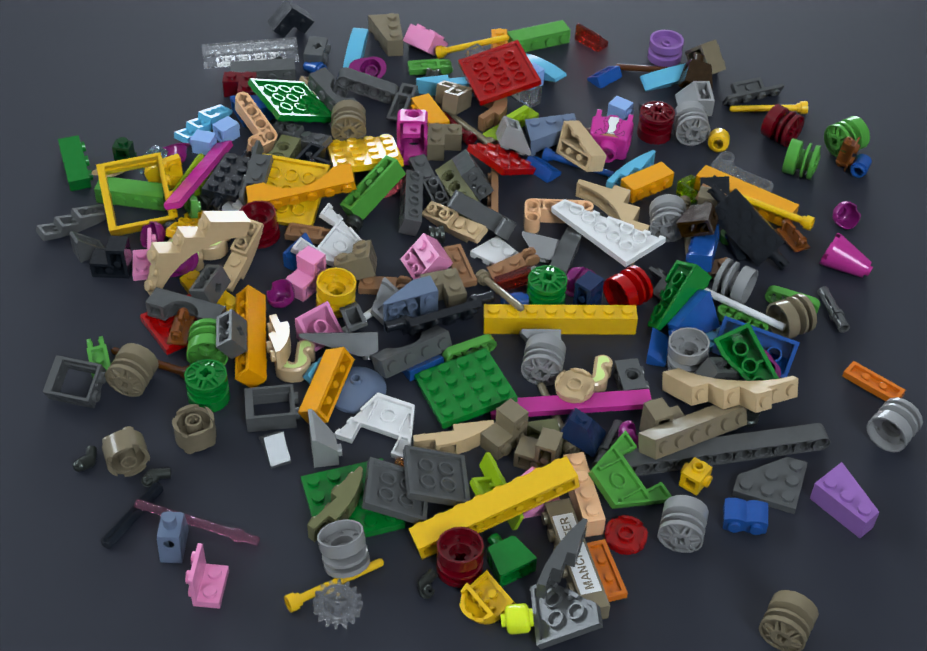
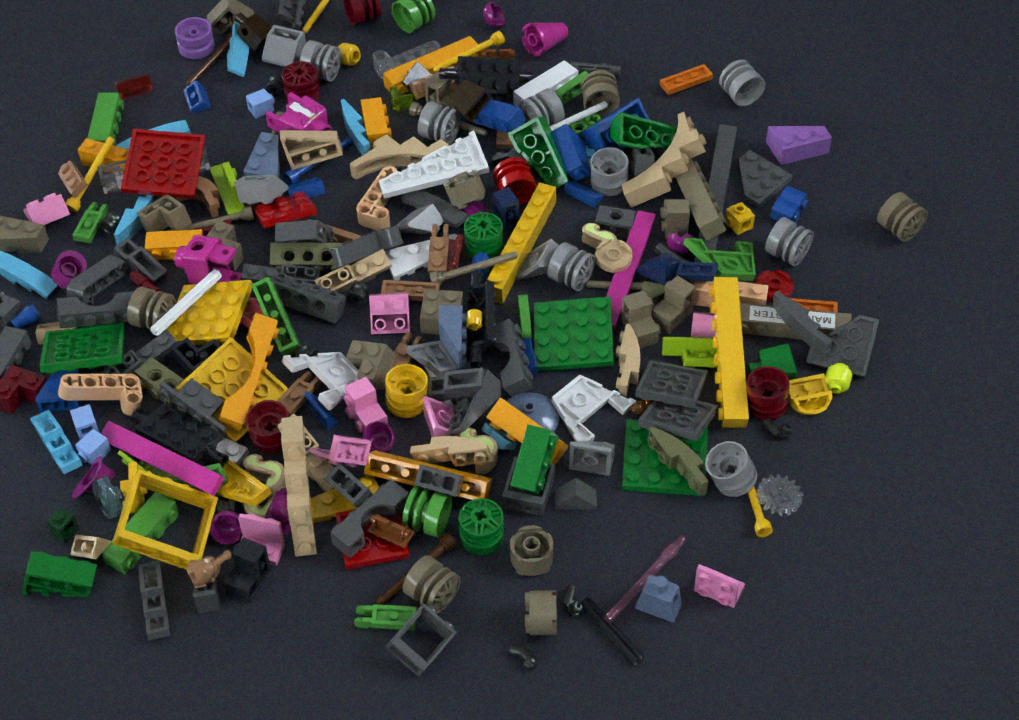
camera: 65 degrees left, 5 degrees up
(95, 230) = (206, 569): none -> medium nougat piece
(238, 268) = (345, 450): none -> bright pink bracket
(283, 389) = (534, 459): none -> green wedge
(362, 134) = (187, 301): none -> white axle
(380, 115) = (141, 281): none -> dark red axle
(430, 305) = (474, 319): none -> yellow hose
(462, 38) = (72, 178): none -> medium nougat plate
(580, 449) = (697, 271): none -> dark blue plate
(588, 254) = (464, 189): none -> dark tan brick
(777, 275) = (551, 79): none -> white brick

